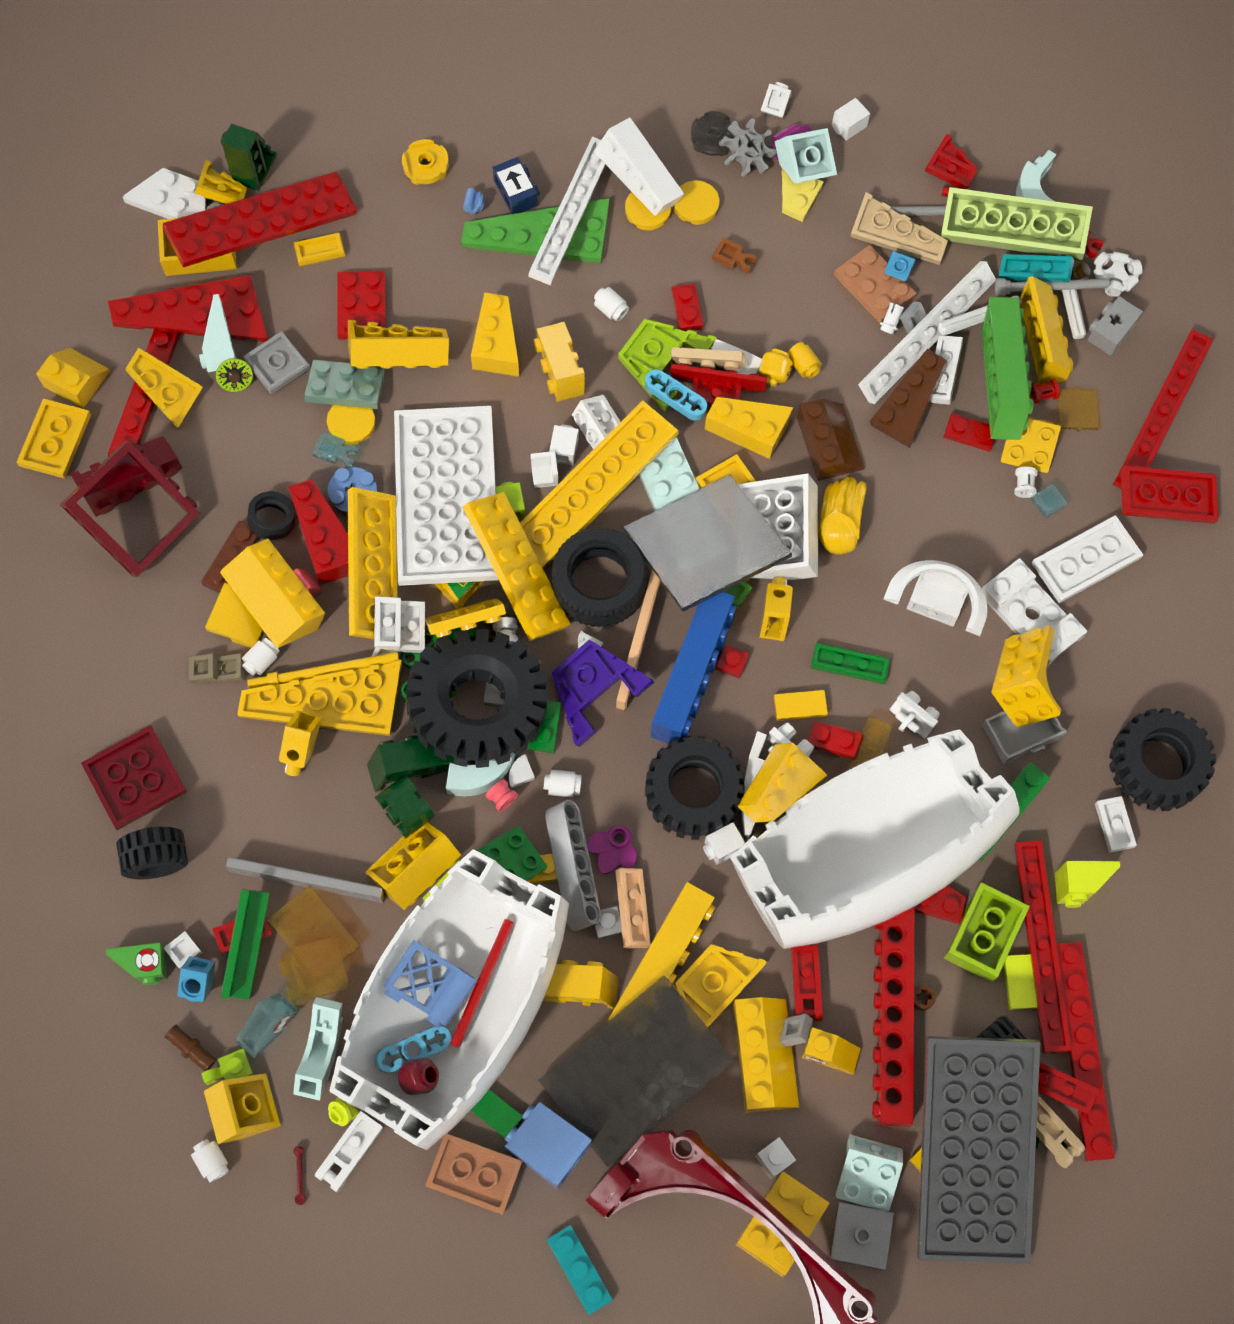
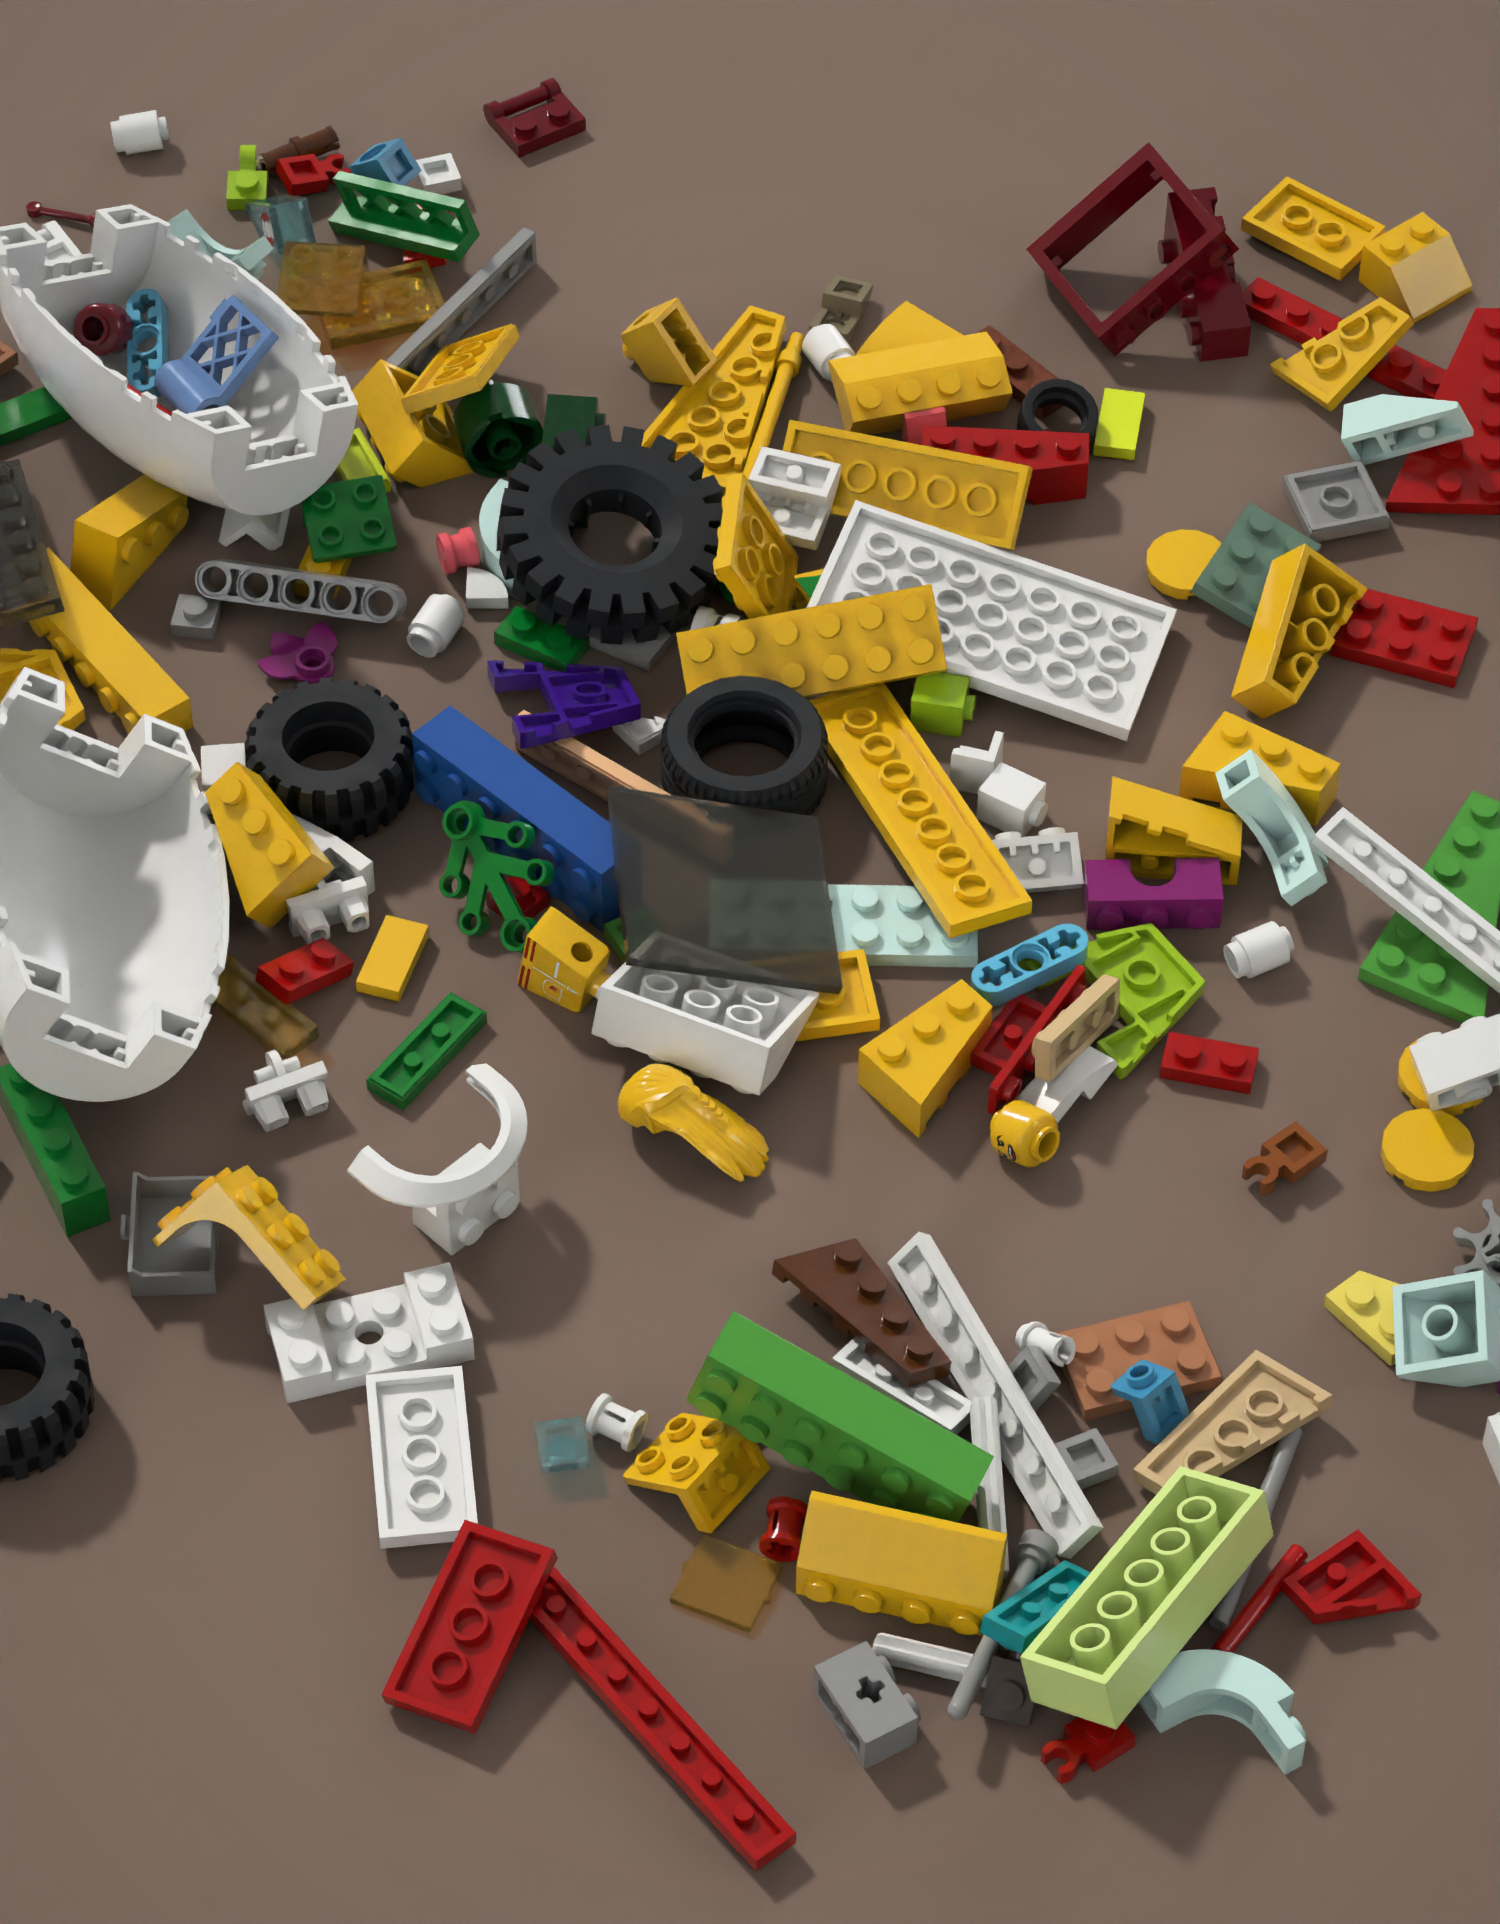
camera: 115 degrees right, 20 degrees down
(109, 910) = (539, 126): none -> dark red plate
(133, 777) = (718, 187): dark red plate -> none
(143, 962) = (445, 127): bright green slope -> none
(152, 853) = (583, 156): black tyre -> none
(210, 1031) = (308, 175): none -> red plate
(234, 375) = (1330, 440): piece -> none
(241, 1107) = (185, 175): yellow slope -> none
(244, 490) = (1119, 424): none -> neon yellow tile
(332, 448) = (1141, 523): clear light blue plate -> none
(345, 479) = (1066, 515): medium blue plate -> none
(373, 841) = (460, 368): none -> yellow tile
(540, 306) = (1277, 823): none -> light aqua arch
(591, 343) = (1119, 901): none -> magenta arch
(633, 908) = (199, 645): light nougat tile -> none
(723, 682) = (488, 871): none -> green plant
(805, 360) = (1019, 1183): yellow brick -> none
(829, 438) = (847, 1162): reddish brown slope -> none
(942, 283) = (1088, 1458): none -> light grey plate
(1117, 272) = (985, 1771): white piece -> none

